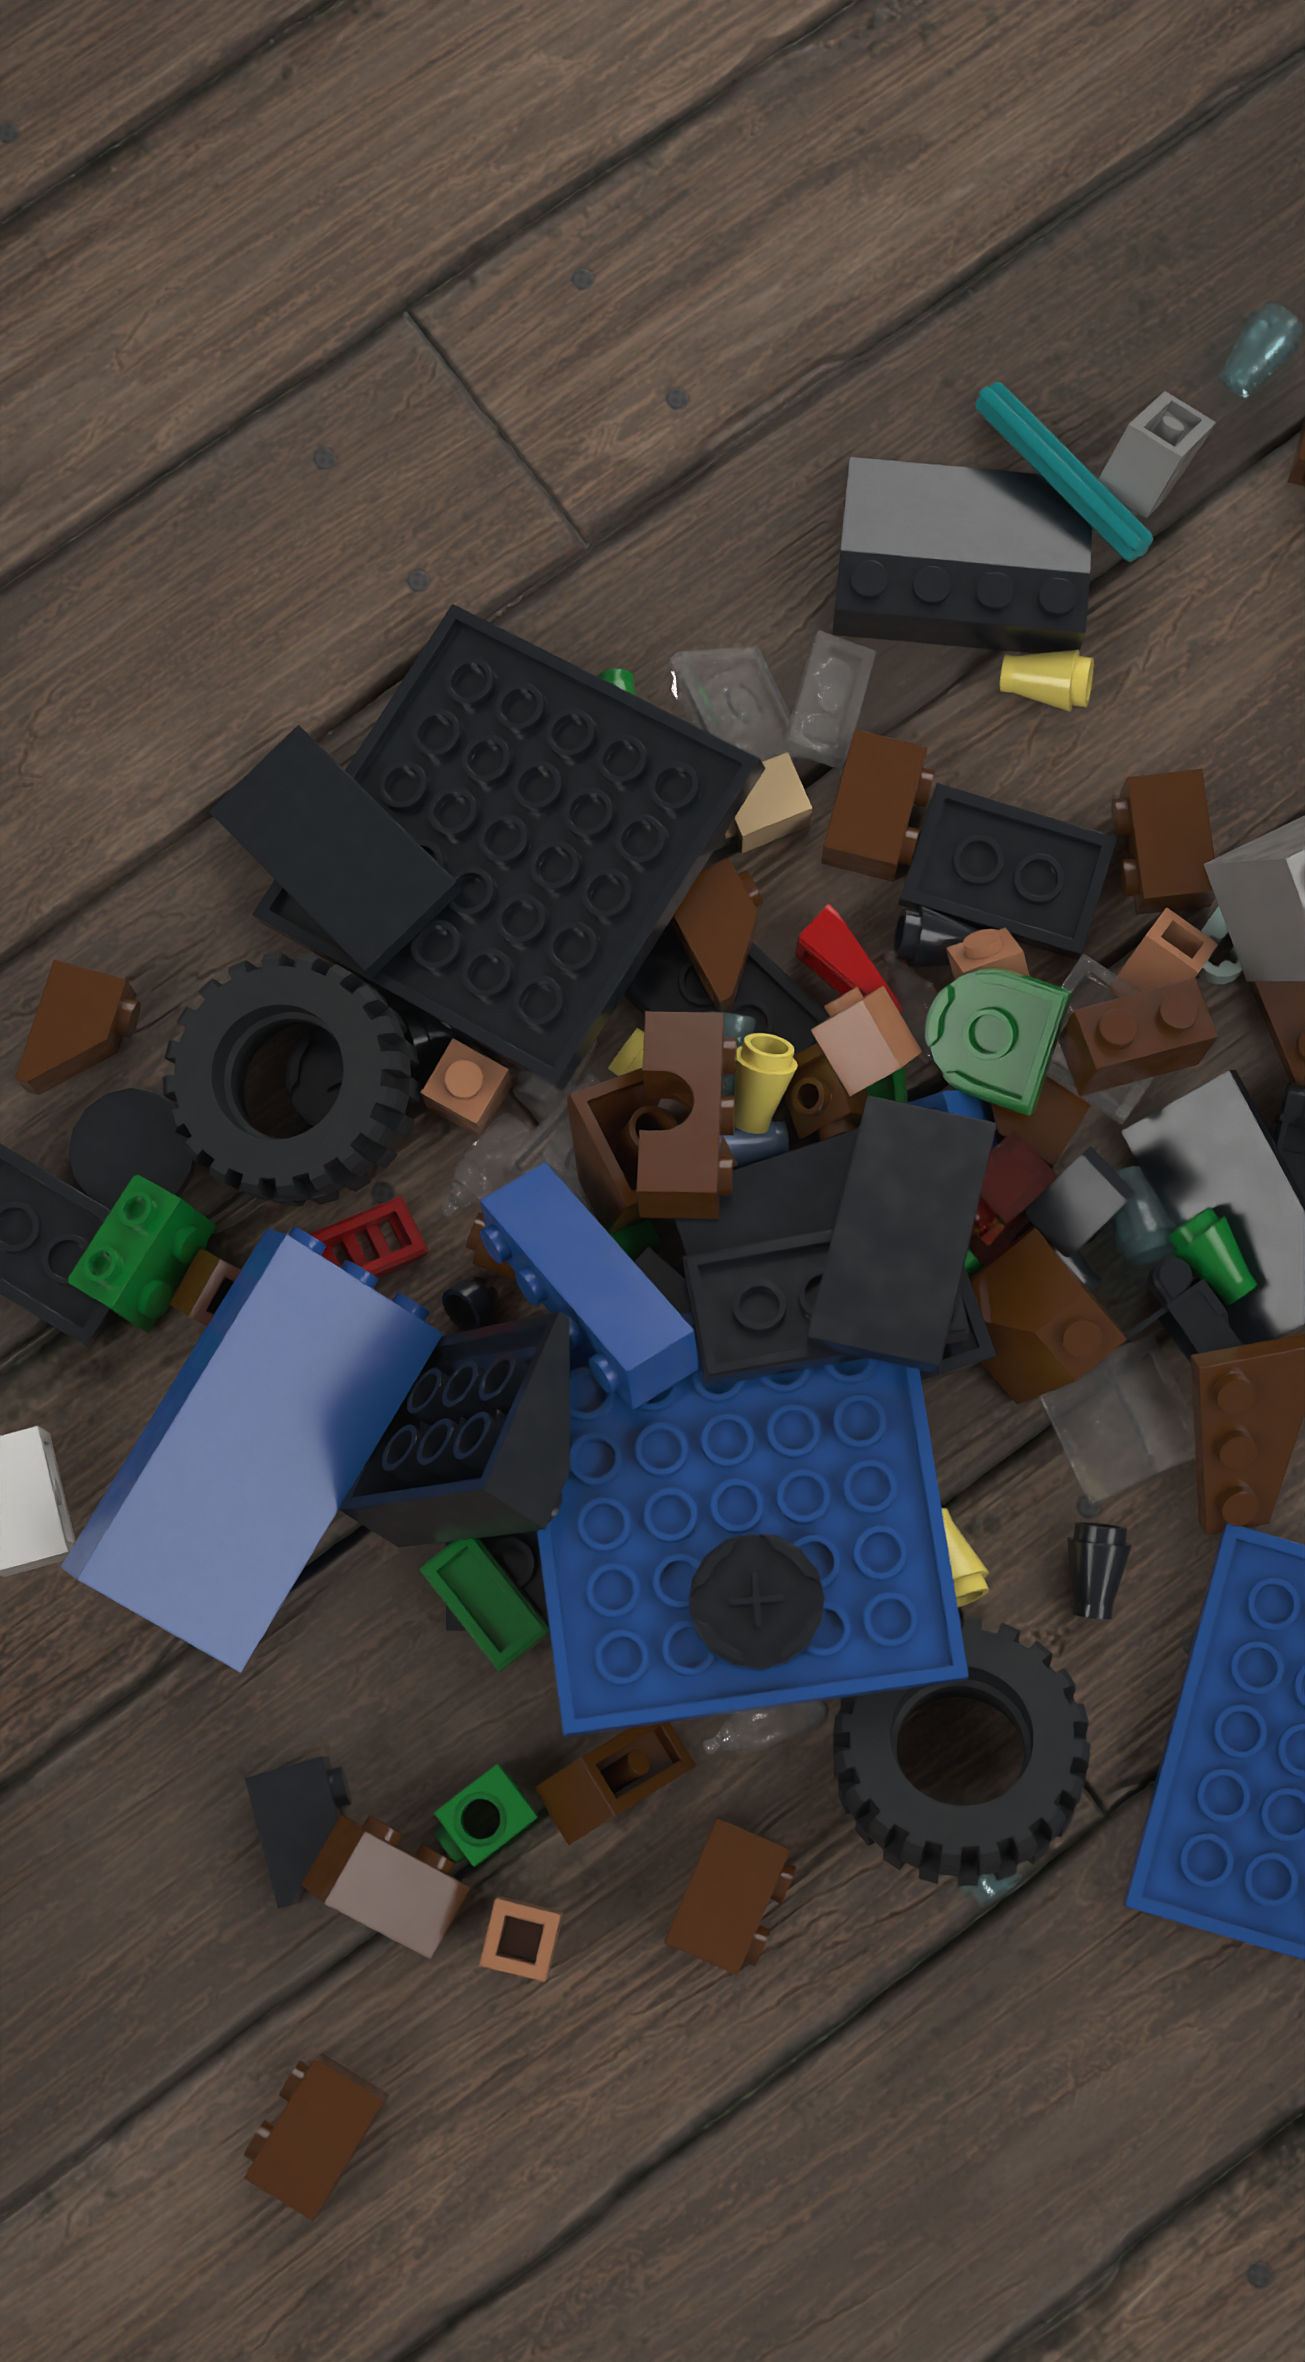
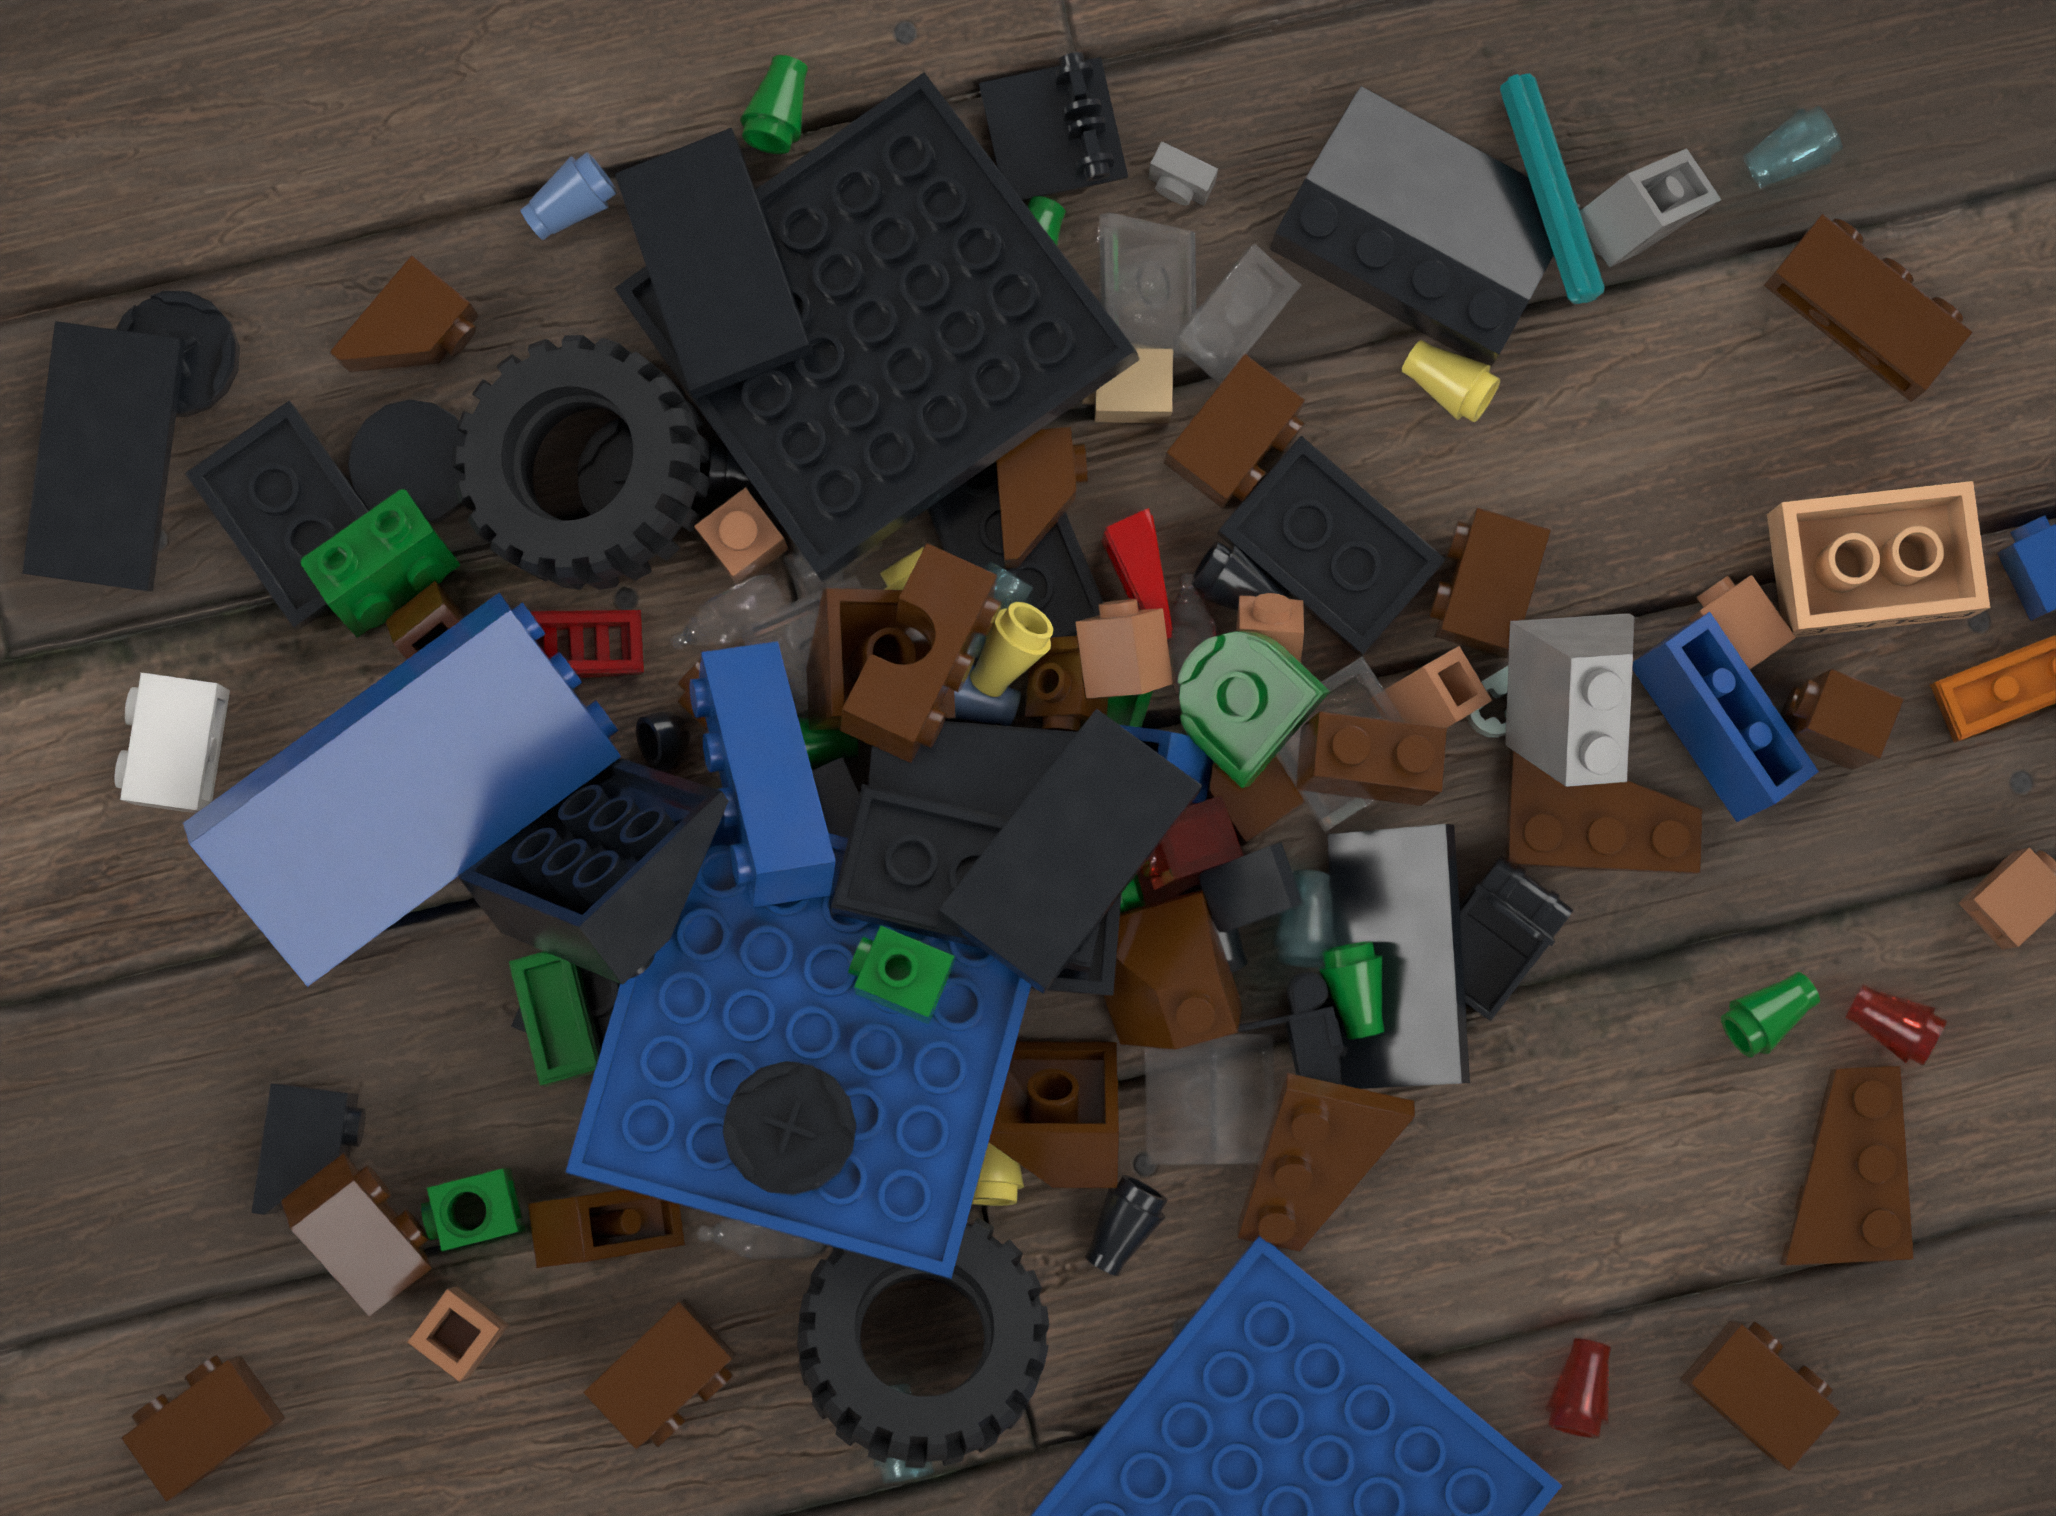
camera: 15 degrees right, 5 degrees up
(175, 850) = (569, 196): none -> medium blue cone
(331, 695) = (775, 111): none -> green cone
(591, 605) = (1054, 128): none -> black hinge
(725, 599) = (1181, 175): none -> light grey plate
(798, 1412) = (901, 973): none -> green brick
(999, 1488) = (1062, 1113): none -> reddish brown slope

